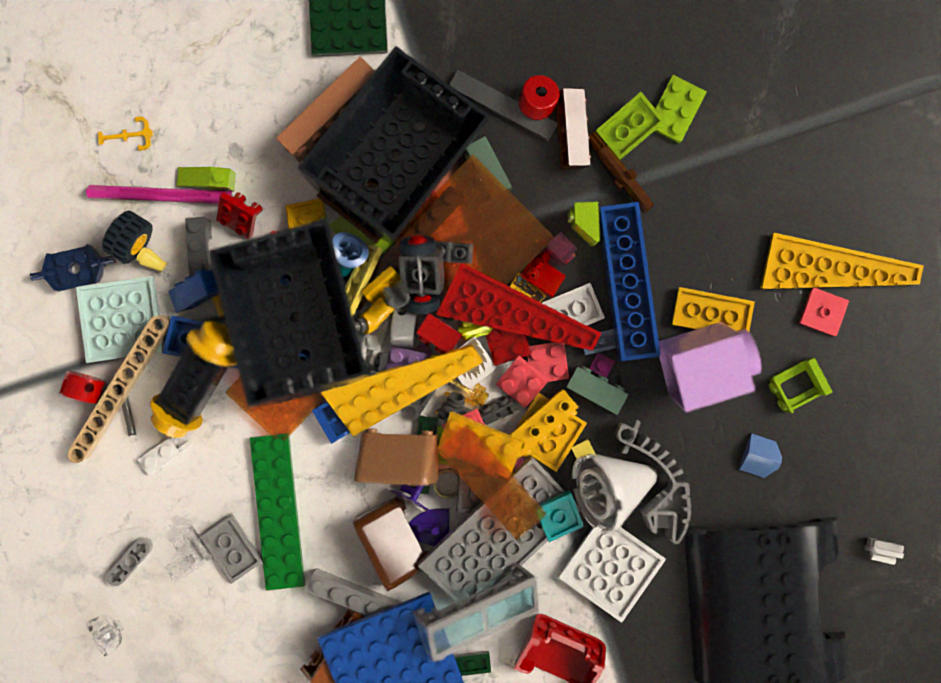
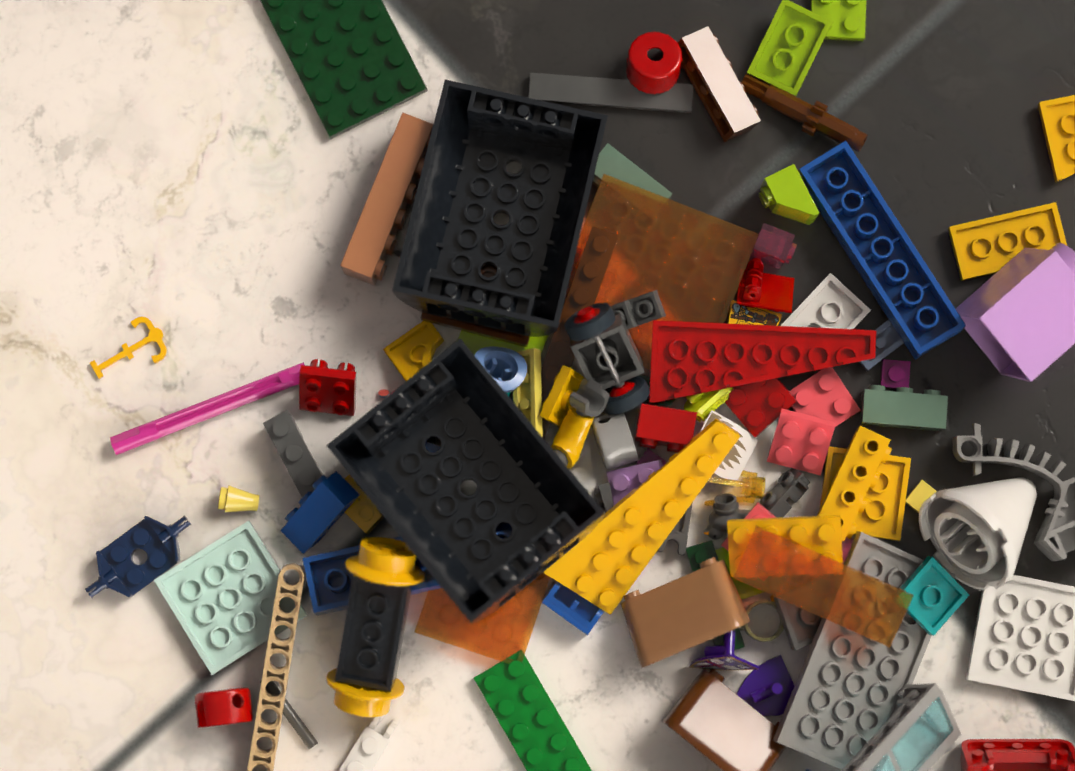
camera: 20 degrees left, 5 degrees down
(127, 236) = (197, 481): black wheel -> none
(206, 178) = (261, 360): lime slope -> none

